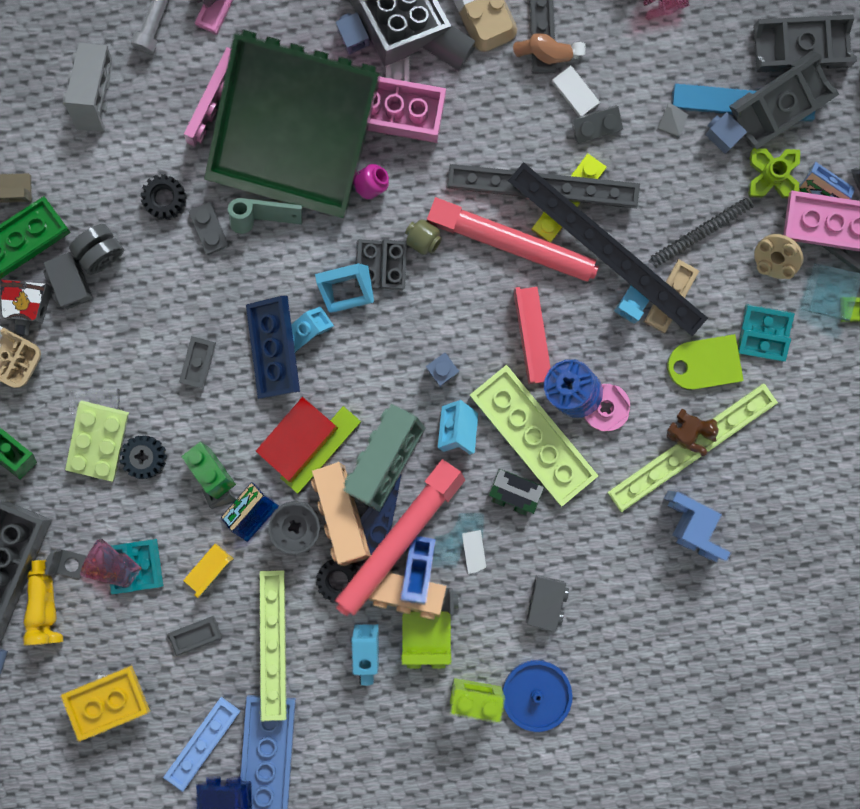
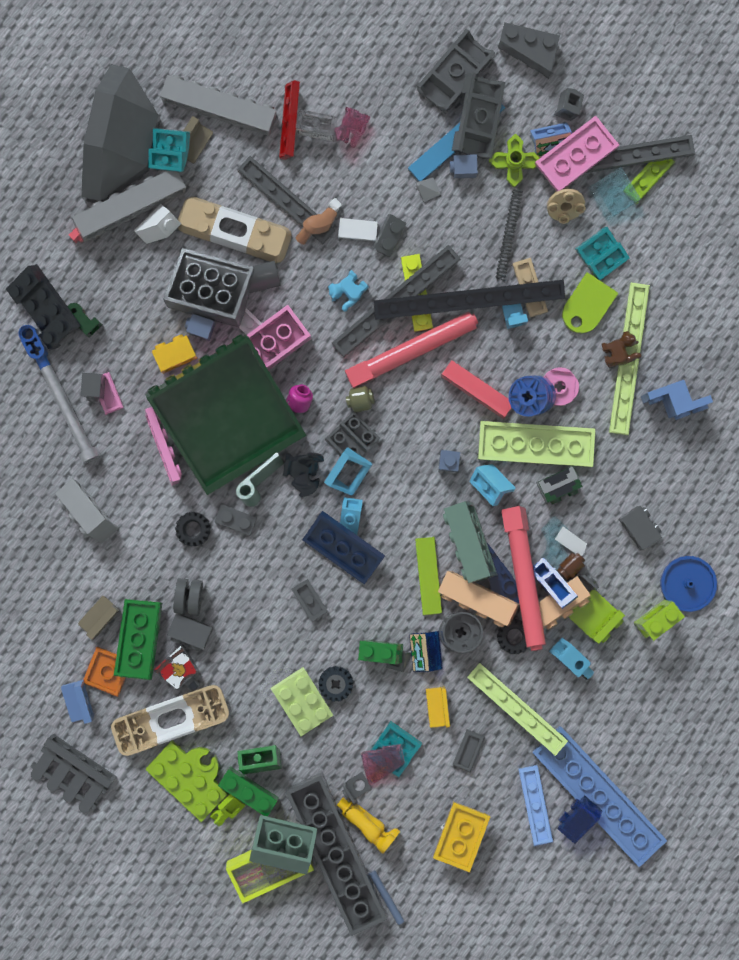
camera: 50 degrees left, 0 degrees up
(296, 439) = (409, 584): red tile -> none
(306, 31) = (174, 353): none -> yellow brick
(308, 242) = (300, 468): none -> black animal
(451, 572) = (571, 566): none -> reddish brown brick
(515, 130) = (349, 288): none -> medium azure animal

